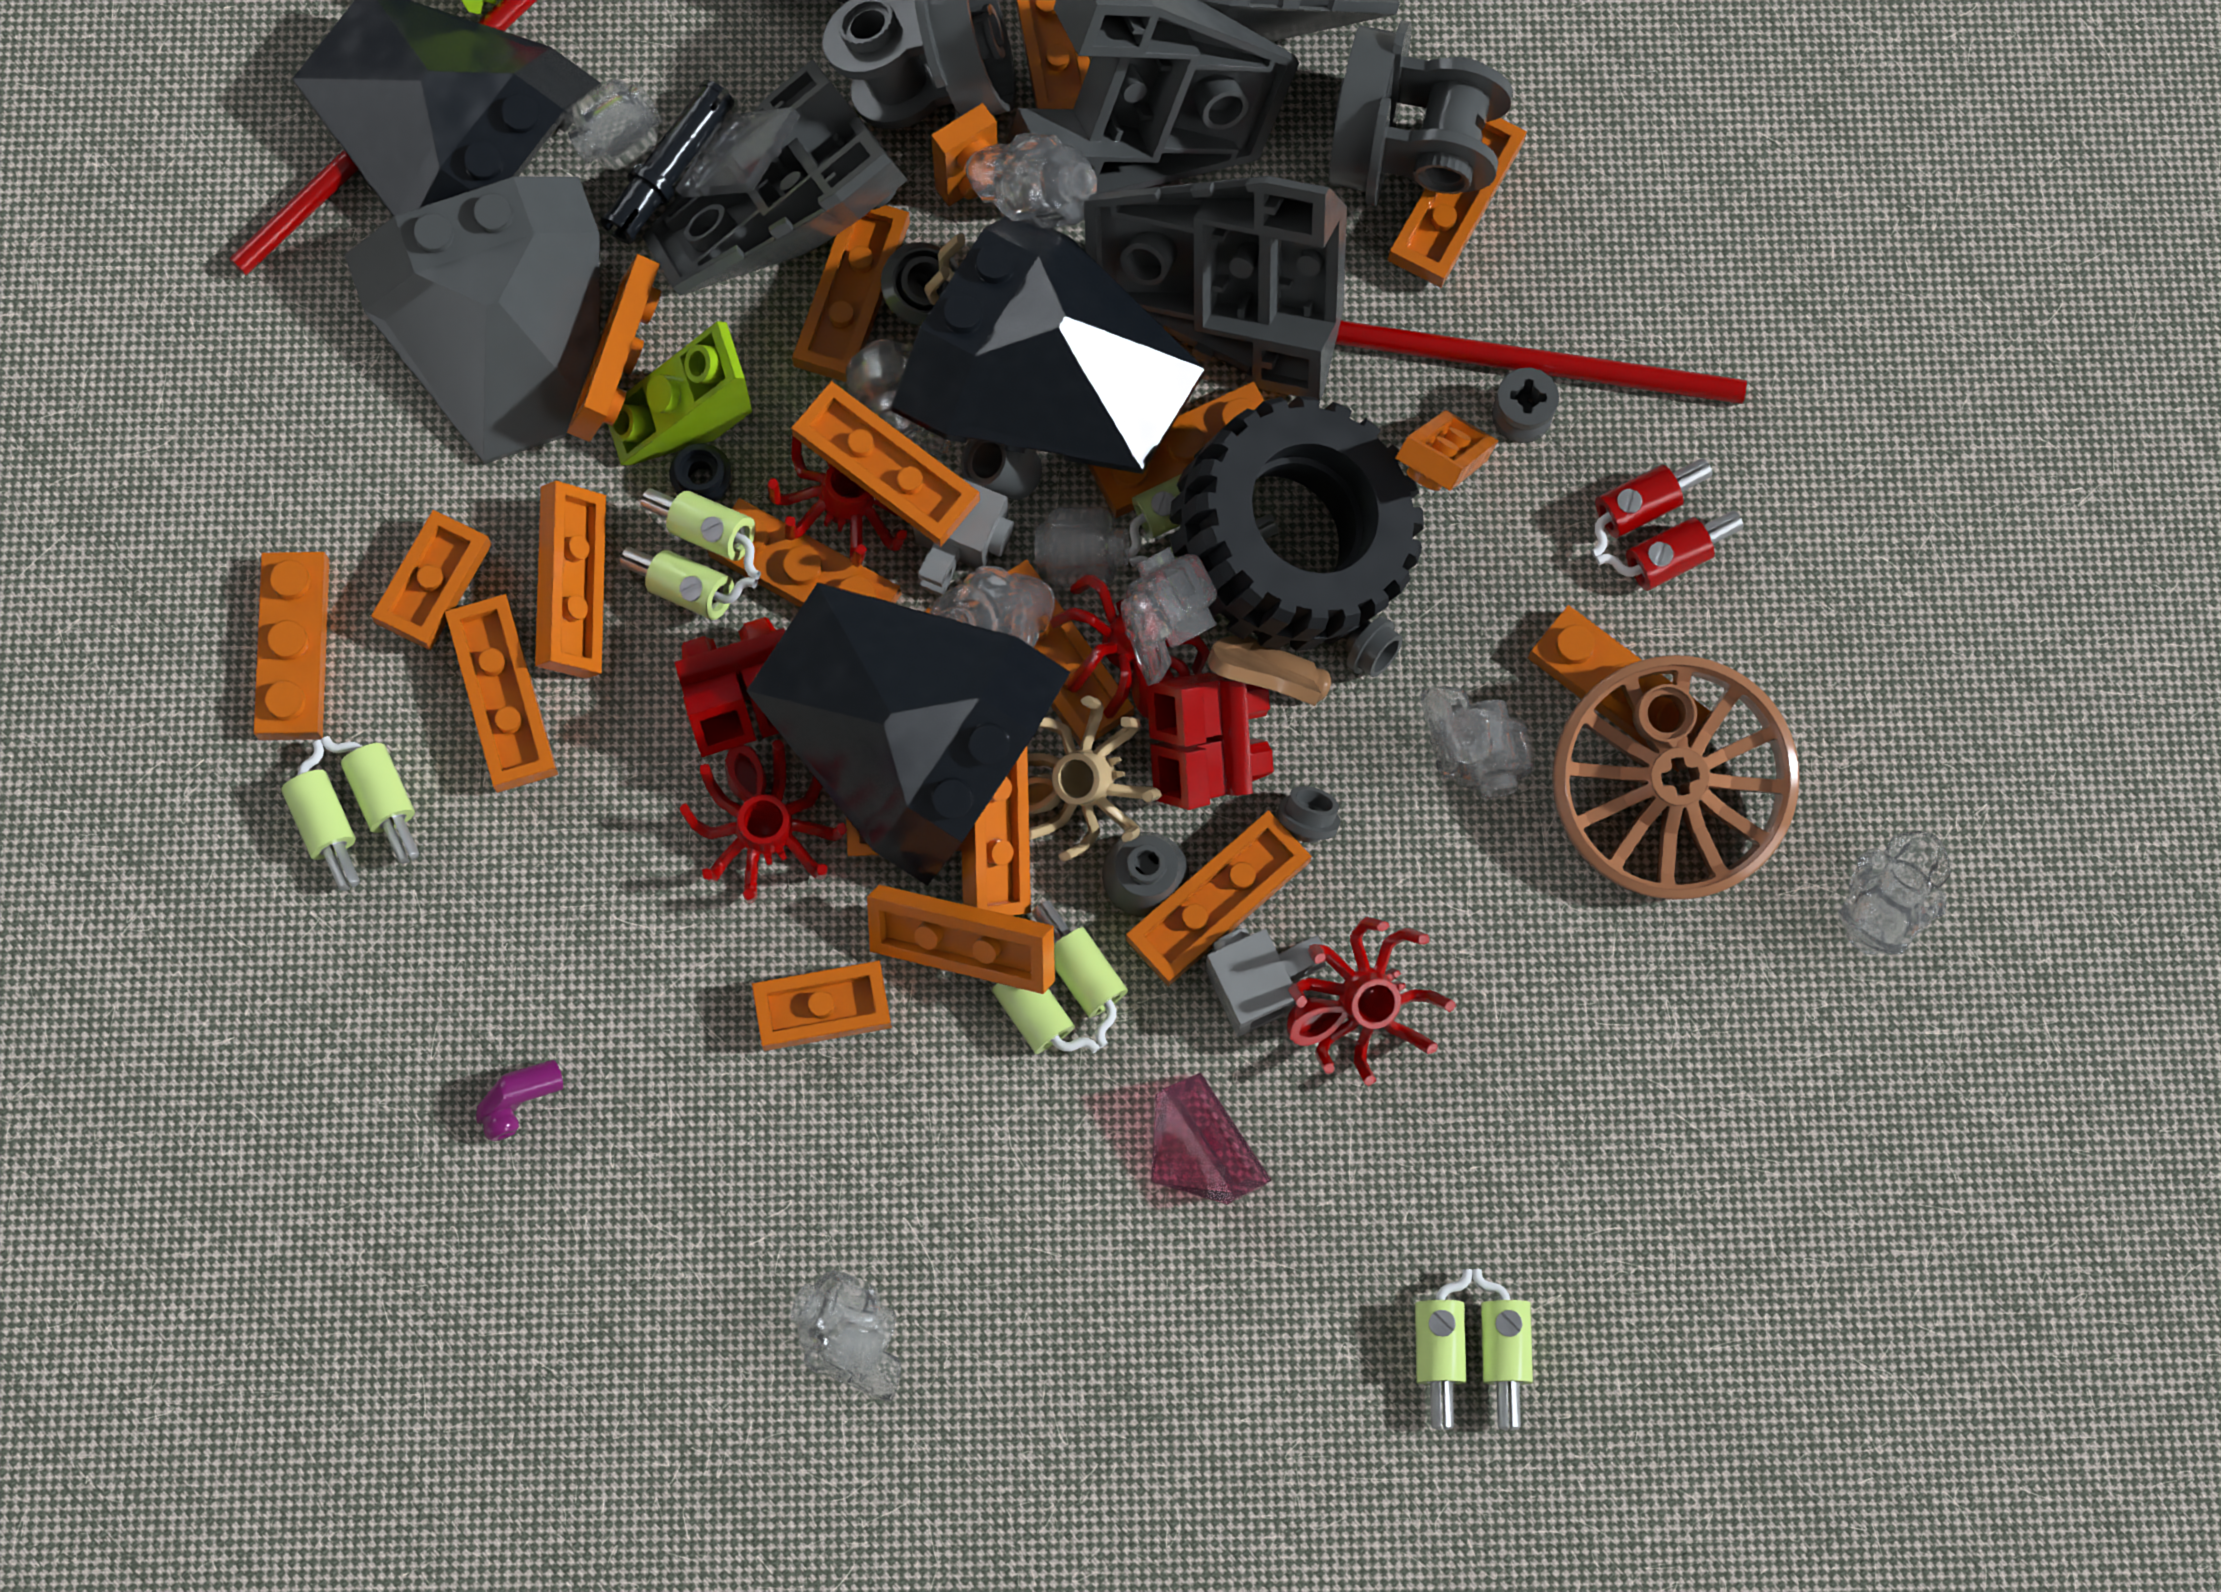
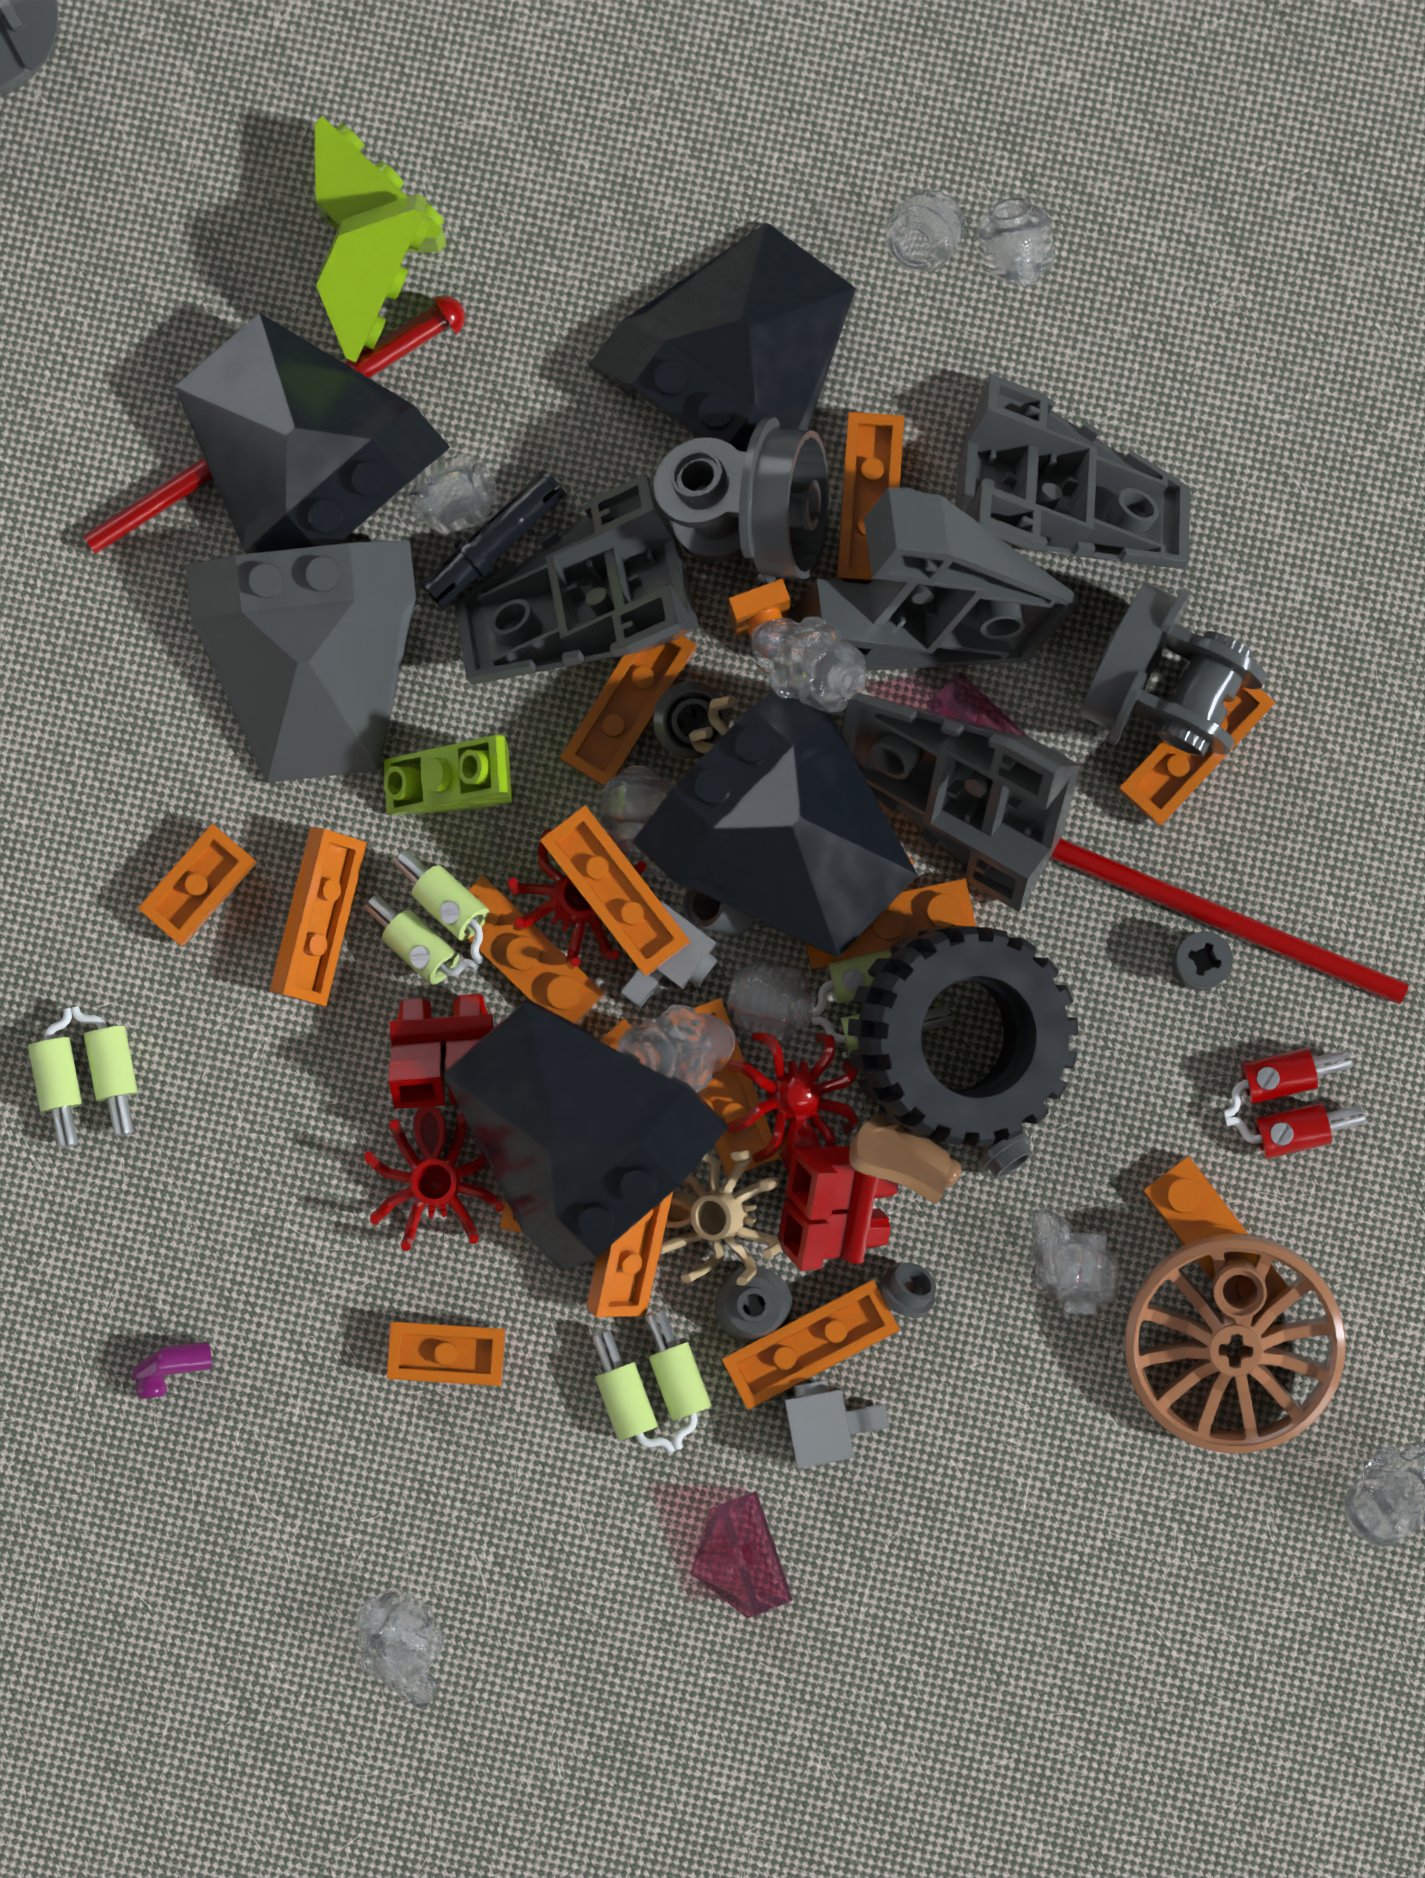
camera: 20 degrees right, 10 degrees up
(291, 646) = (64, 912): orange plate -> none
(501, 693) = (235, 1004): orange plate -> none
(616, 350) = (405, 715): orange plate -> none
(698, 457) = (454, 825): black plate -> none
(738, 153) = (556, 553): clear piece -> none
(961, 939) = (577, 1332): orange plate -> none
(1167, 605) = (825, 1093): clear head -> none
(1364, 999) = (910, 1472): red animal -> none
(1445, 451) = (1114, 1001): orange plate -> none
(1504, 1349) = (898, 1784): yellowish green piece -> none

